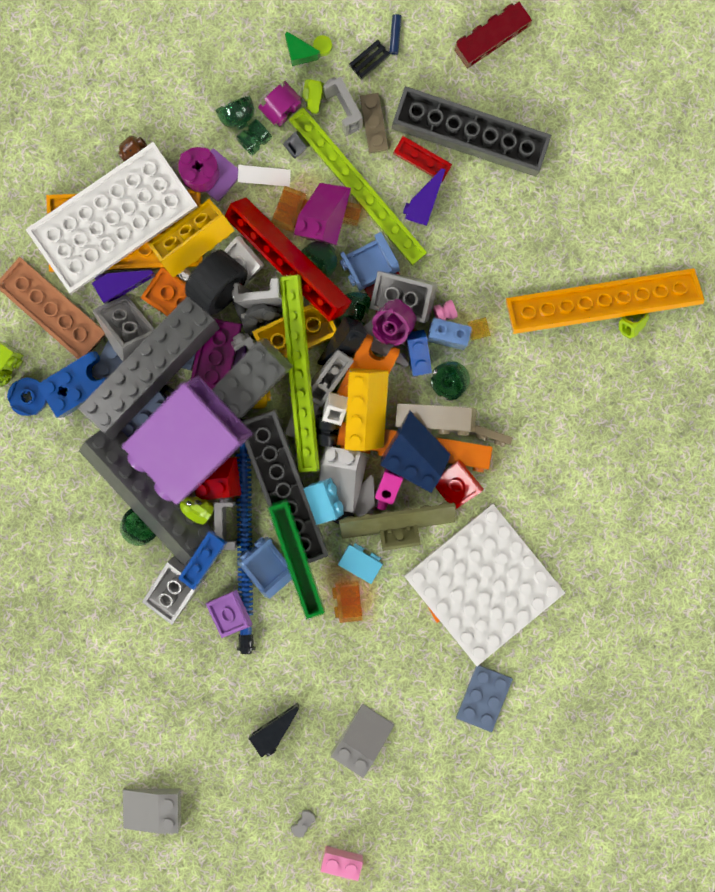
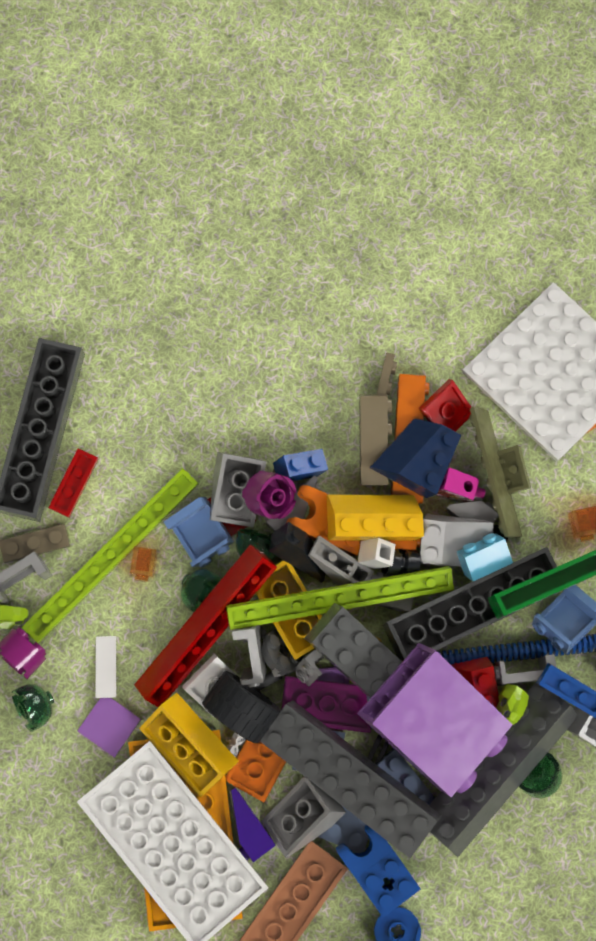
camera: 100 degrees left, 10 degrees down
(130, 147) = (84, 830): reddish brown head -> none
(201, 159) = (115, 752): magenta brick -> none
(254, 137) = (61, 681): clear green wheel -> none
(289, 208) = (144, 631): clear orange brick -> none
(296, 144) = (66, 631): black plate -> none
(323, 214) = (147, 589): magenta slope -> none
(360, 563) = (548, 512): medium azure brick -> none
(422, 203) = (124, 476): dark purple slope -> none
(445, 311) = (249, 441): bright pink wheel -> none
(449, 334) = (276, 431): medium blue panel -> none
(450, 380) = (328, 427): clear green cylinder -> none
(479, 329) = (265, 402): clear yellow plate -> none
(604, 301) = (222, 268): light orange plate -> none
(632, 325) = (242, 233): lime rock -> none

